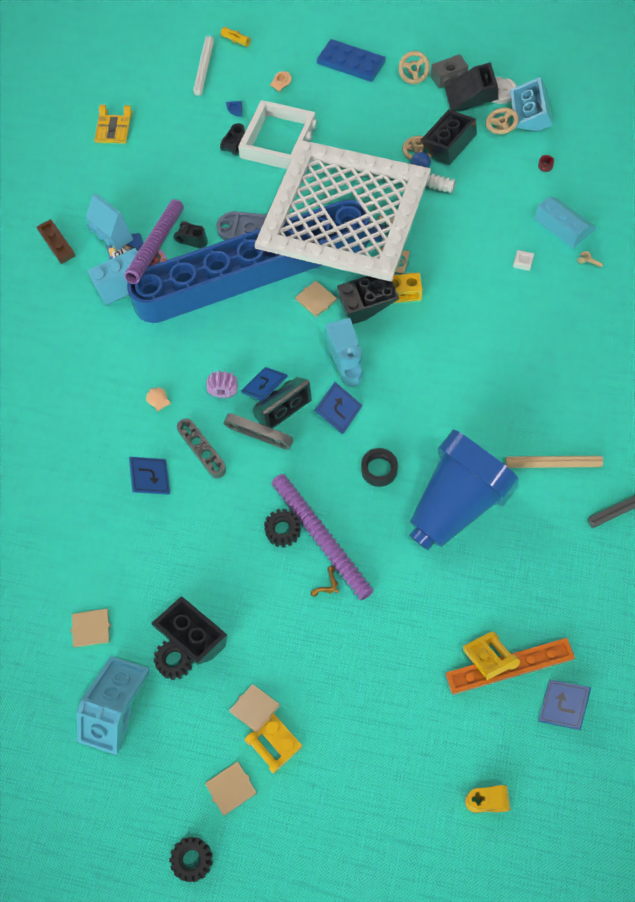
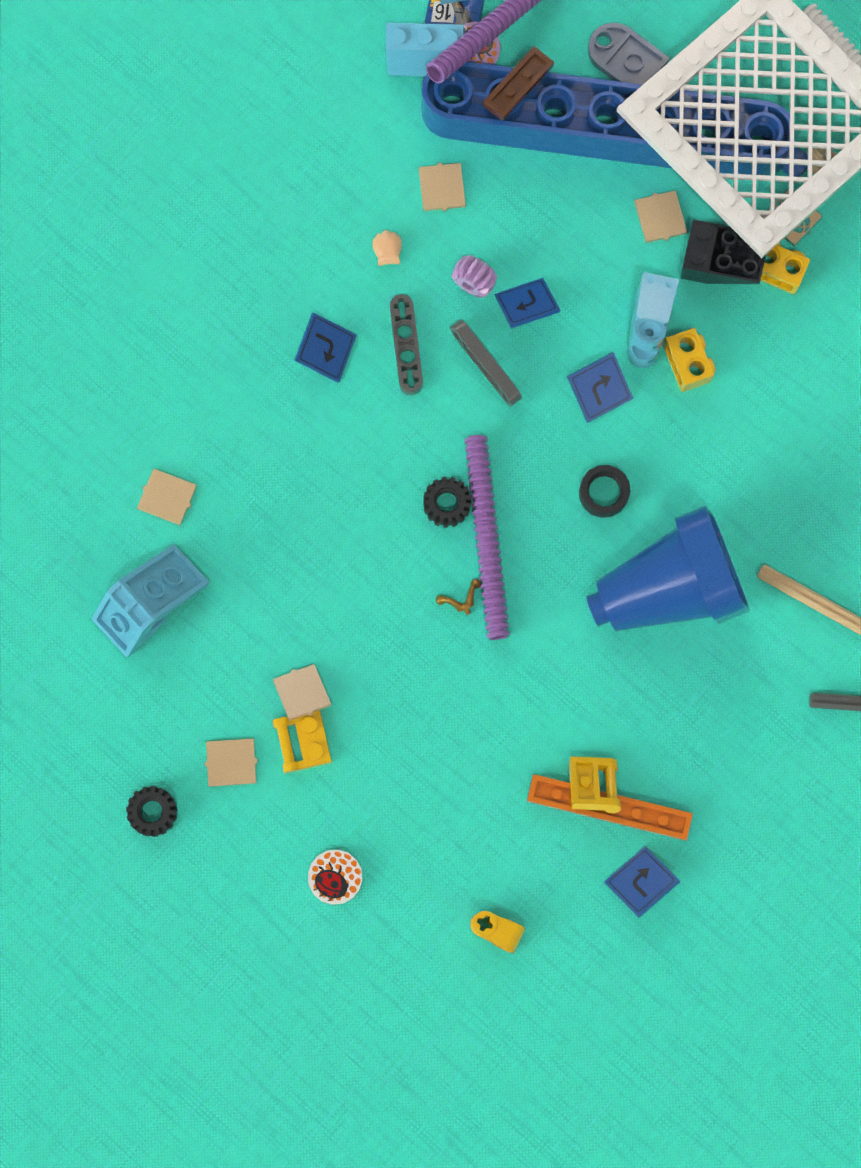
camera: 20 degrees right, 15 degrees up
(167, 671) = (241, 571): black tyre -> none
(173, 348) = (442, 187): none -> tan piece
(186, 261) = (518, 83): none -> reddish brown plate
(191, 235) = (547, 28): black piece -> none
(191, 631) = (275, 568): black slope -> none
(283, 403) = (535, 342): black slope -> none
(351, 829) = (335, 877): none -> tile
(380, 367) = (682, 361): none -> yellow brick

